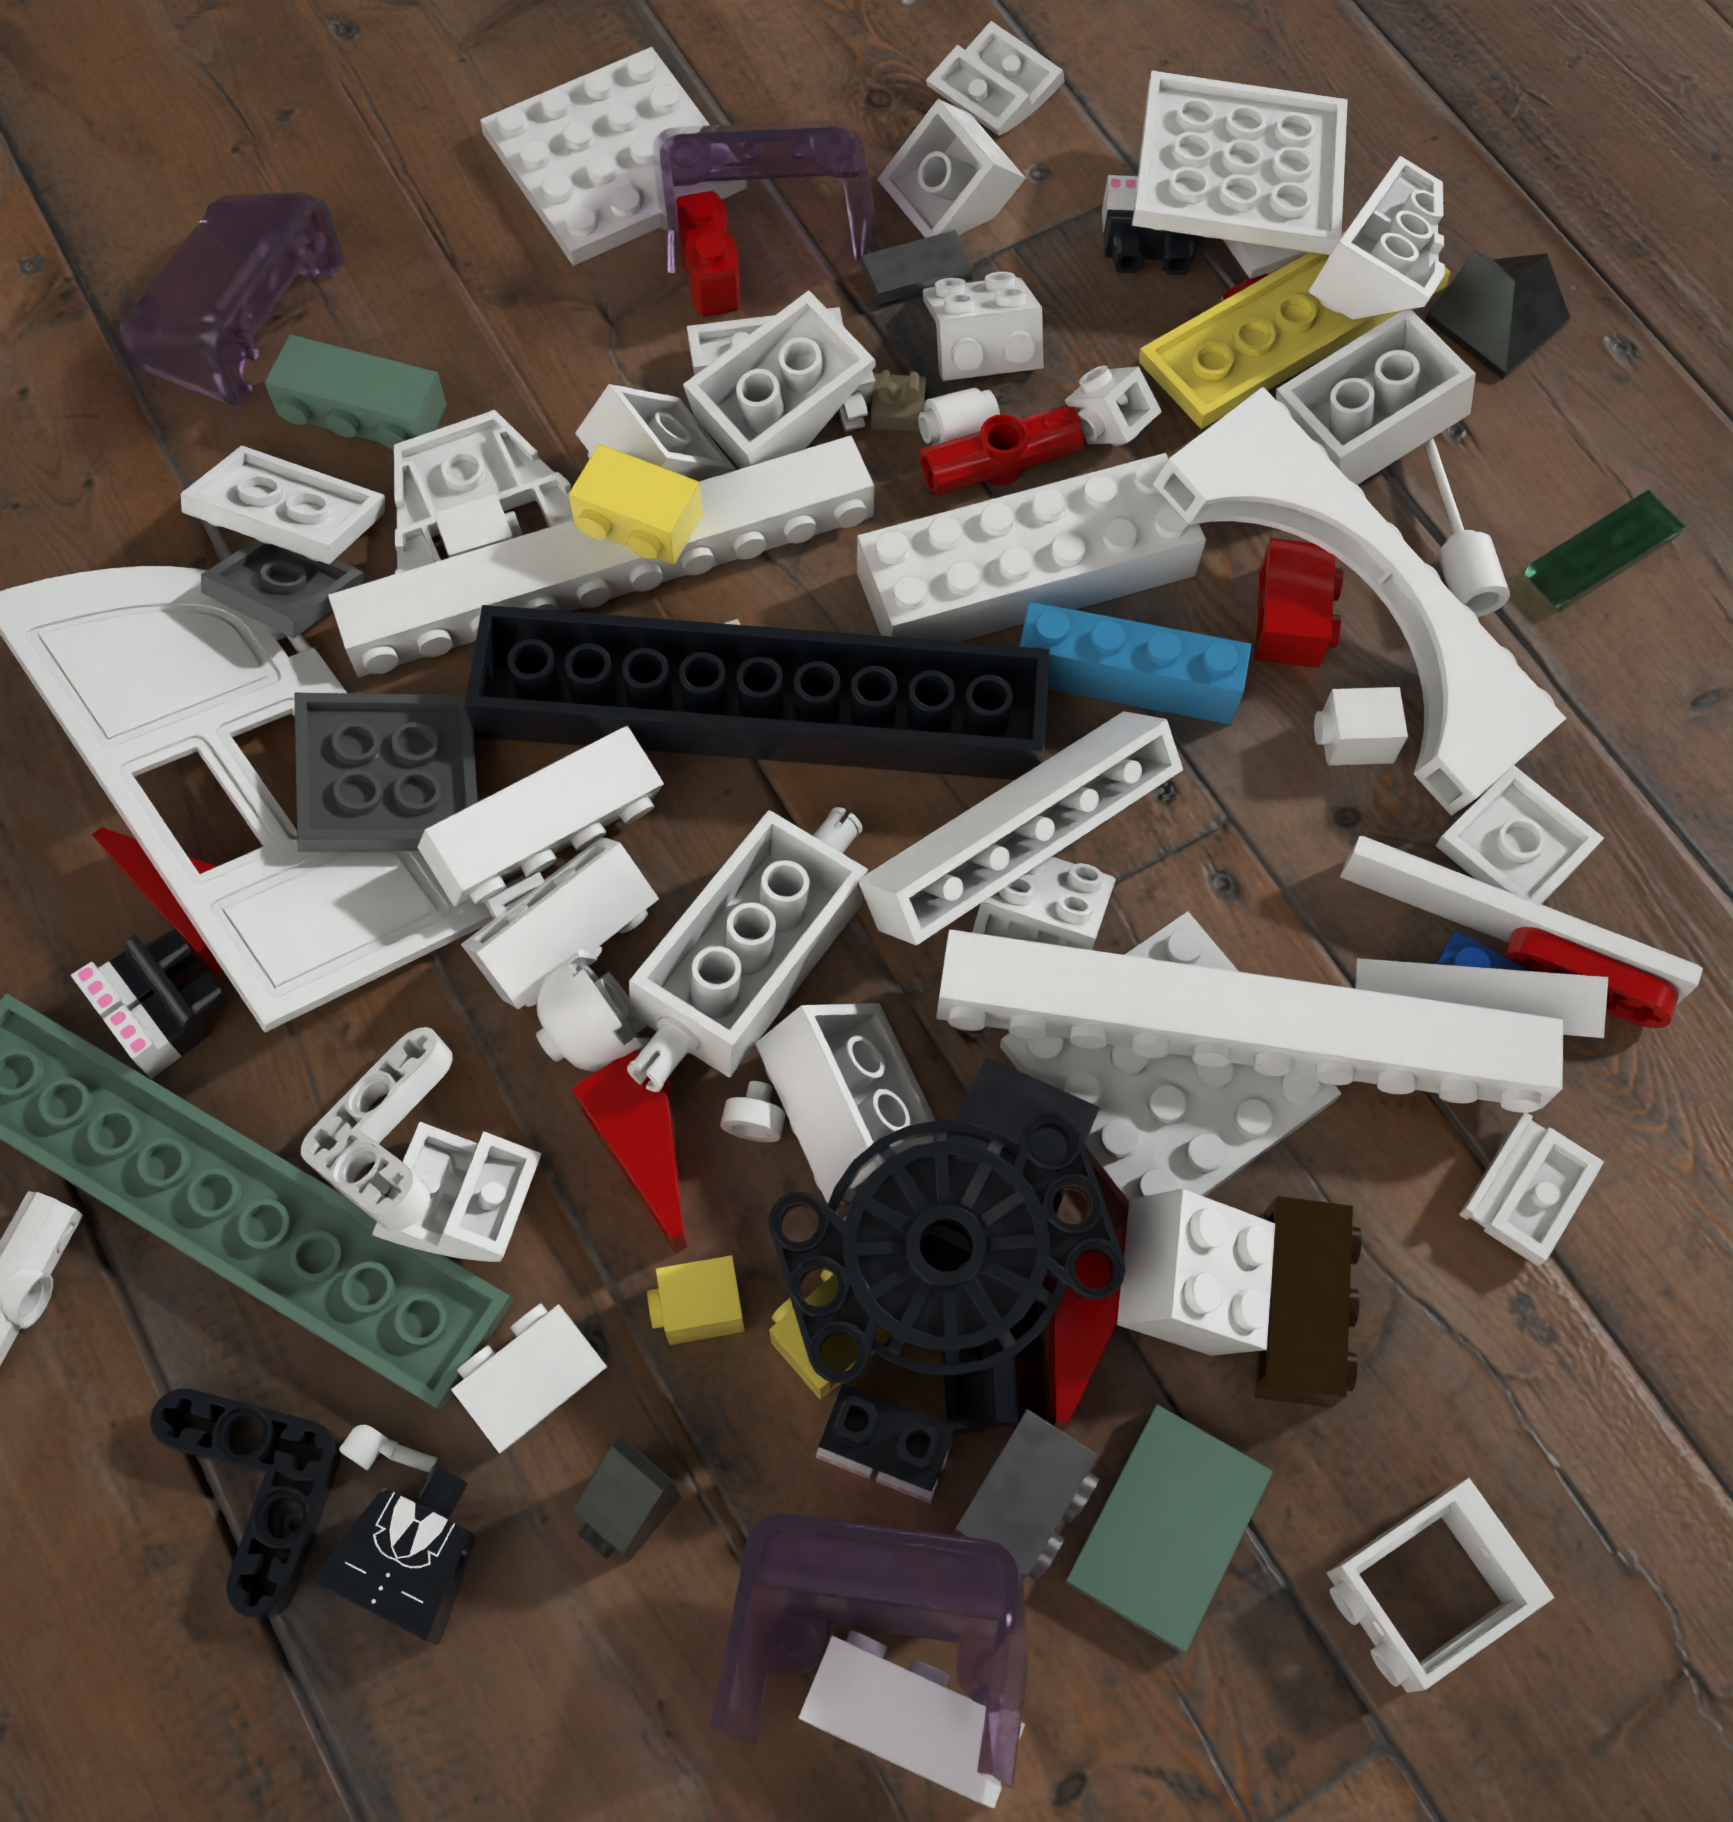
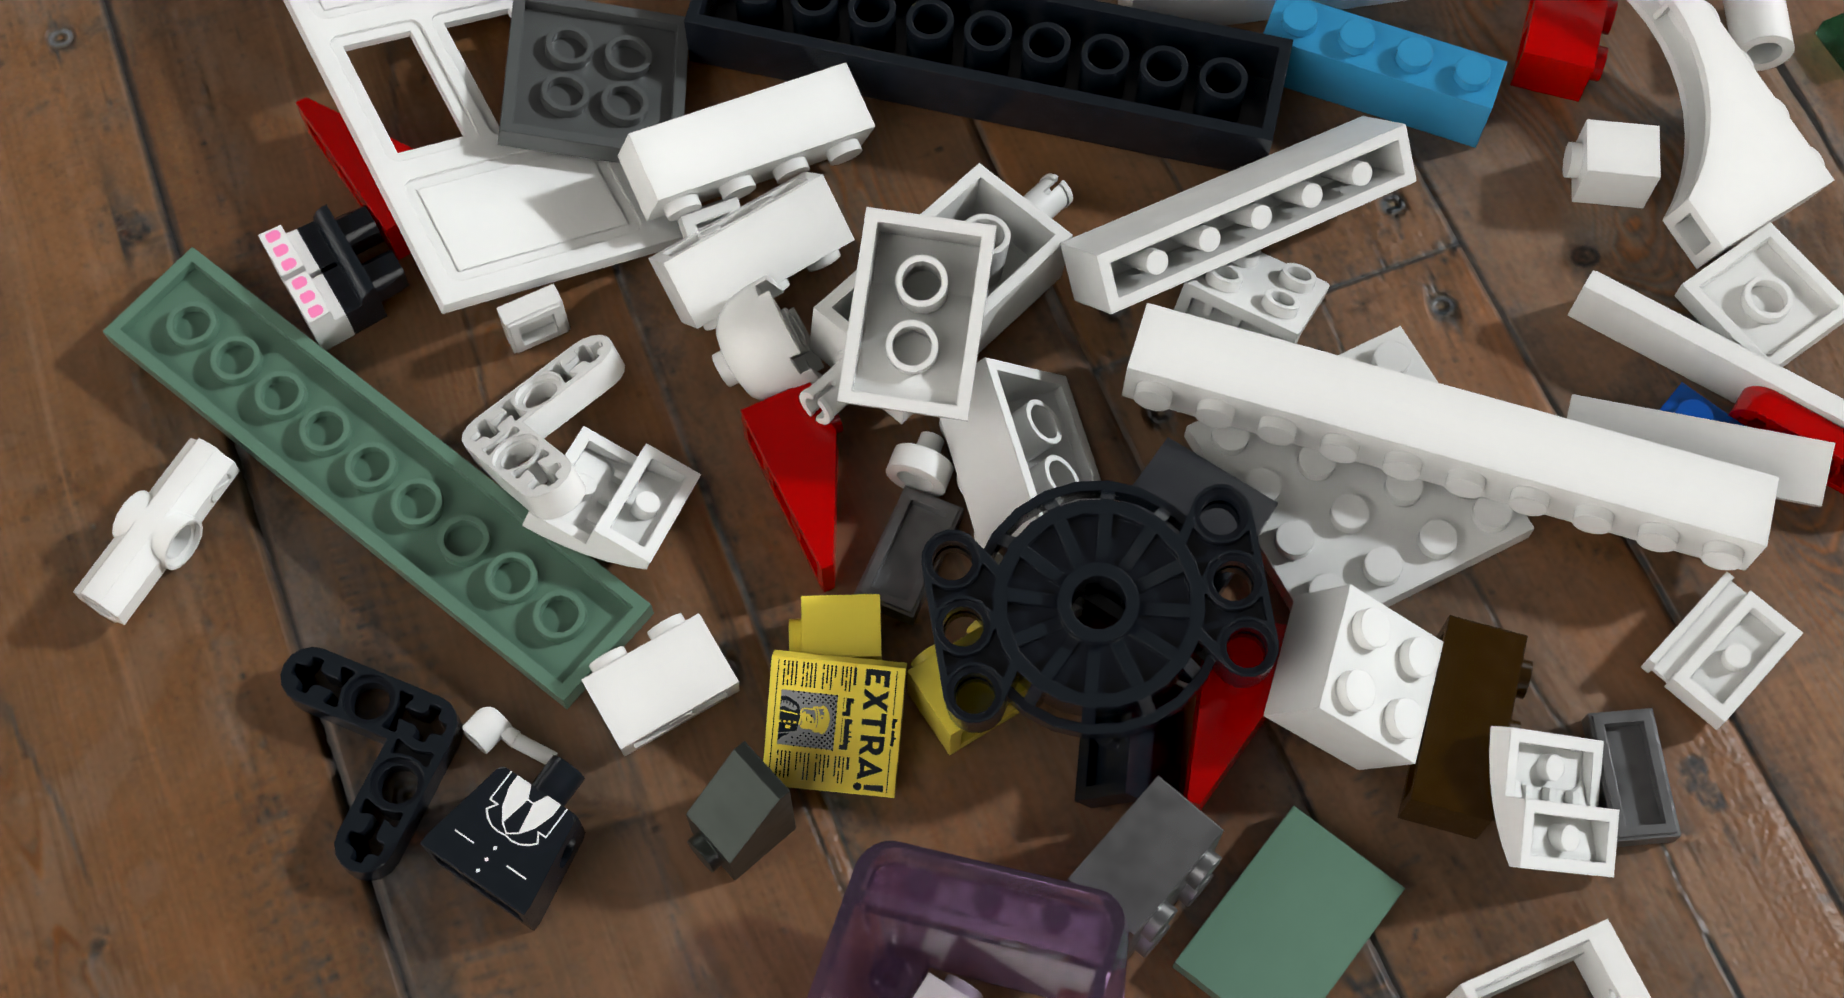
camera: 10 degrees right, 0 degrees up
(356, 1019) = (533, 318): none -> white tile
(705, 1391) = (835, 722): none -> light yellow tile
(730, 979) = (917, 314): none -> white slope
(755, 1184) = (896, 561): none -> flat silver tile
(882, 1436) = (1000, 786): black hips -> none
(1396, 1367) = (1549, 802): none -> white slope
(1466, 1326) = (1634, 776): none -> flat silver tile

